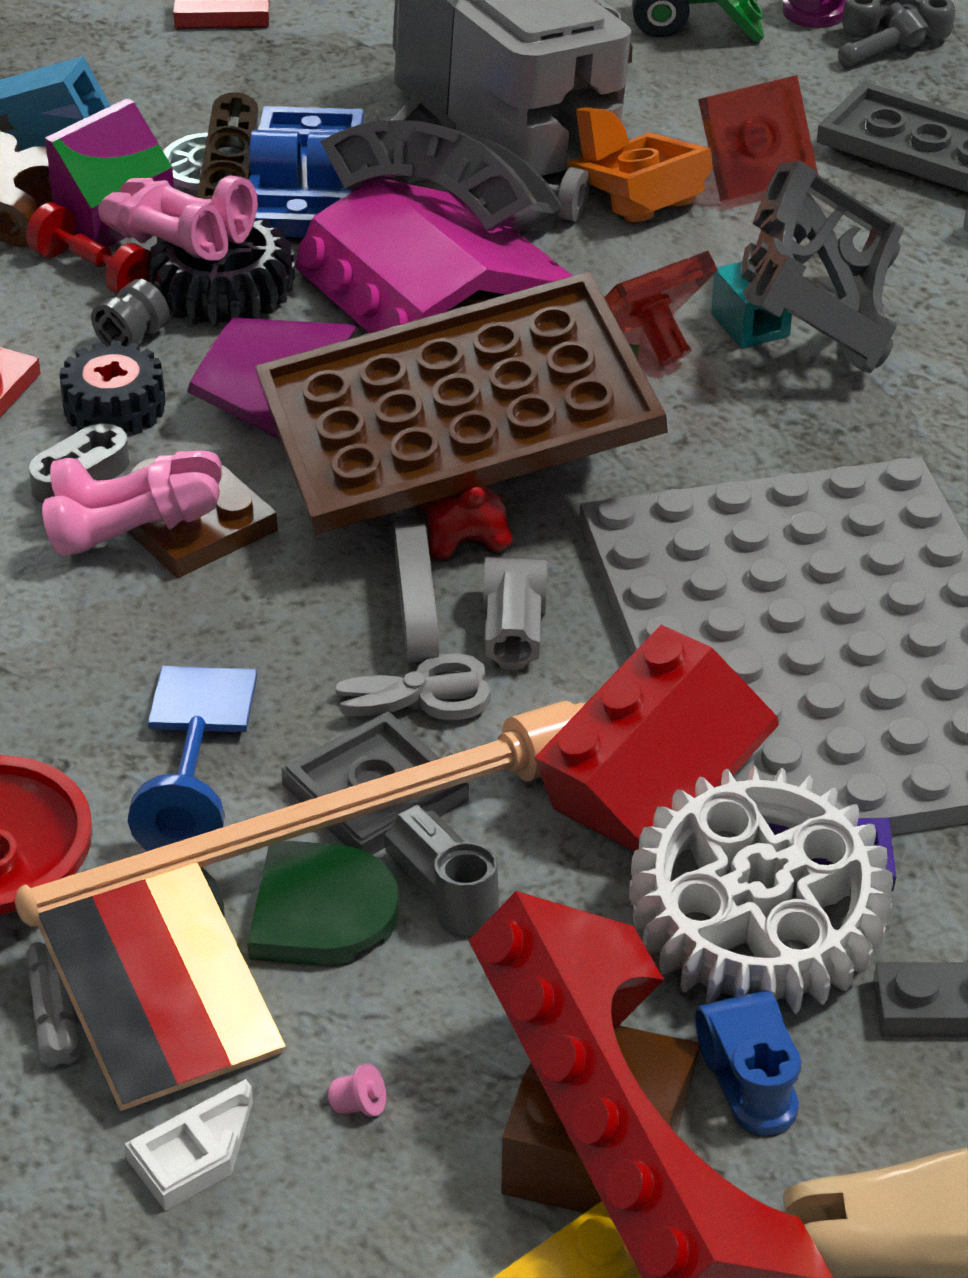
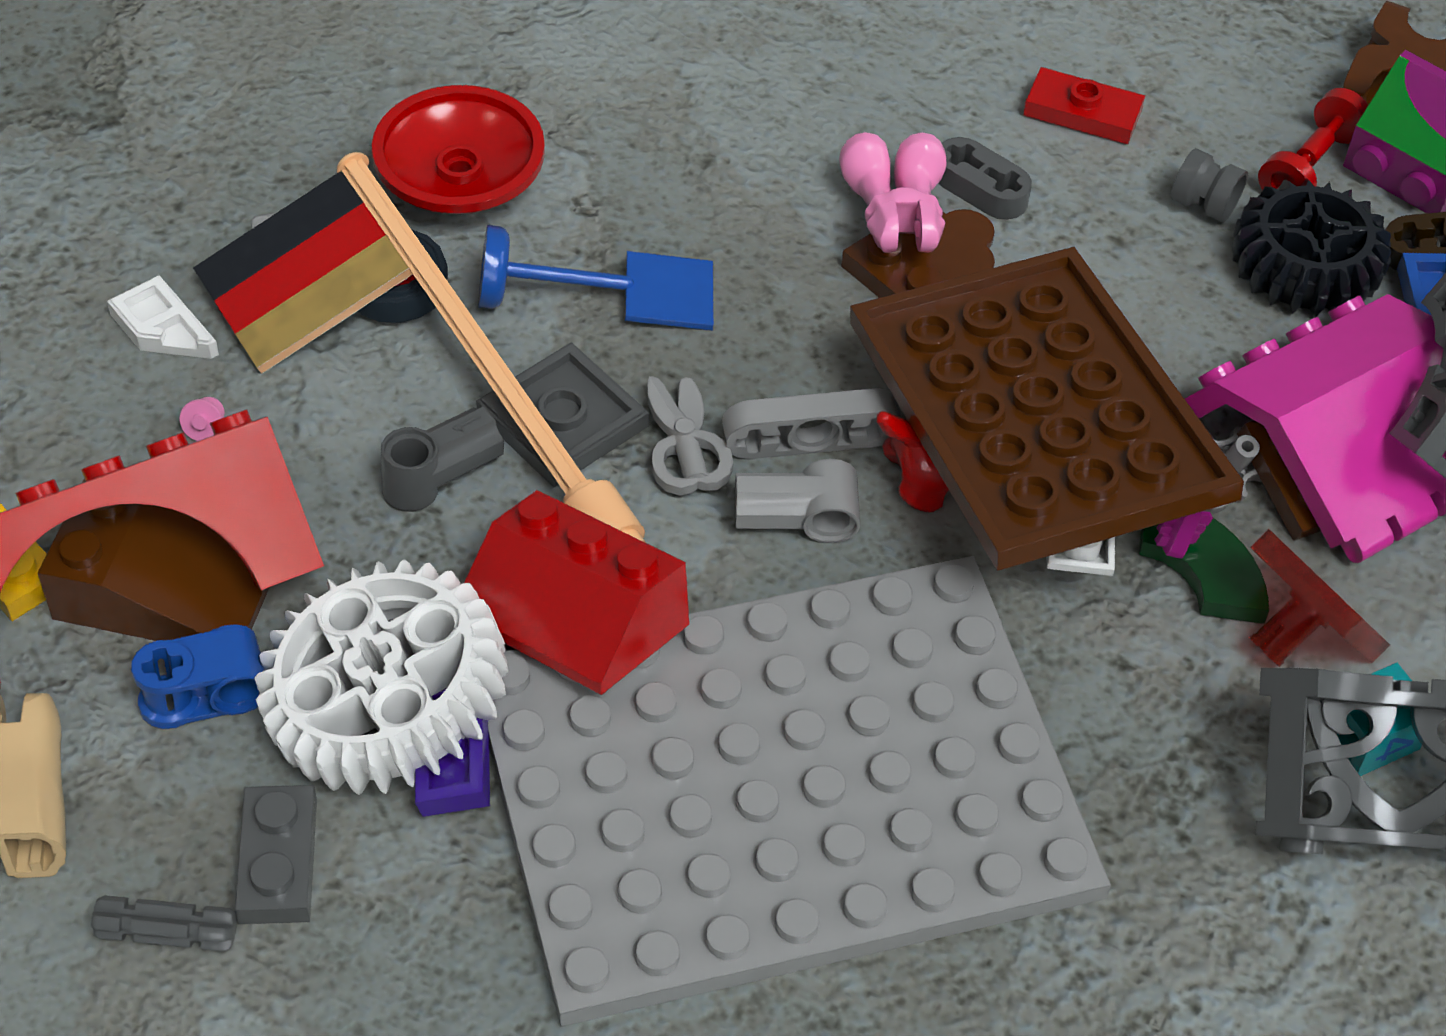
camera: 85 degrees right, 10 degrees up
(113, 387) = (1092, 186): black wheel -> none
(192, 223) = (1354, 206): bright pink piece -> none
(229, 372) = (1158, 288): magenta slope -> none
(321, 904) = (411, 380): dark green tile -> none

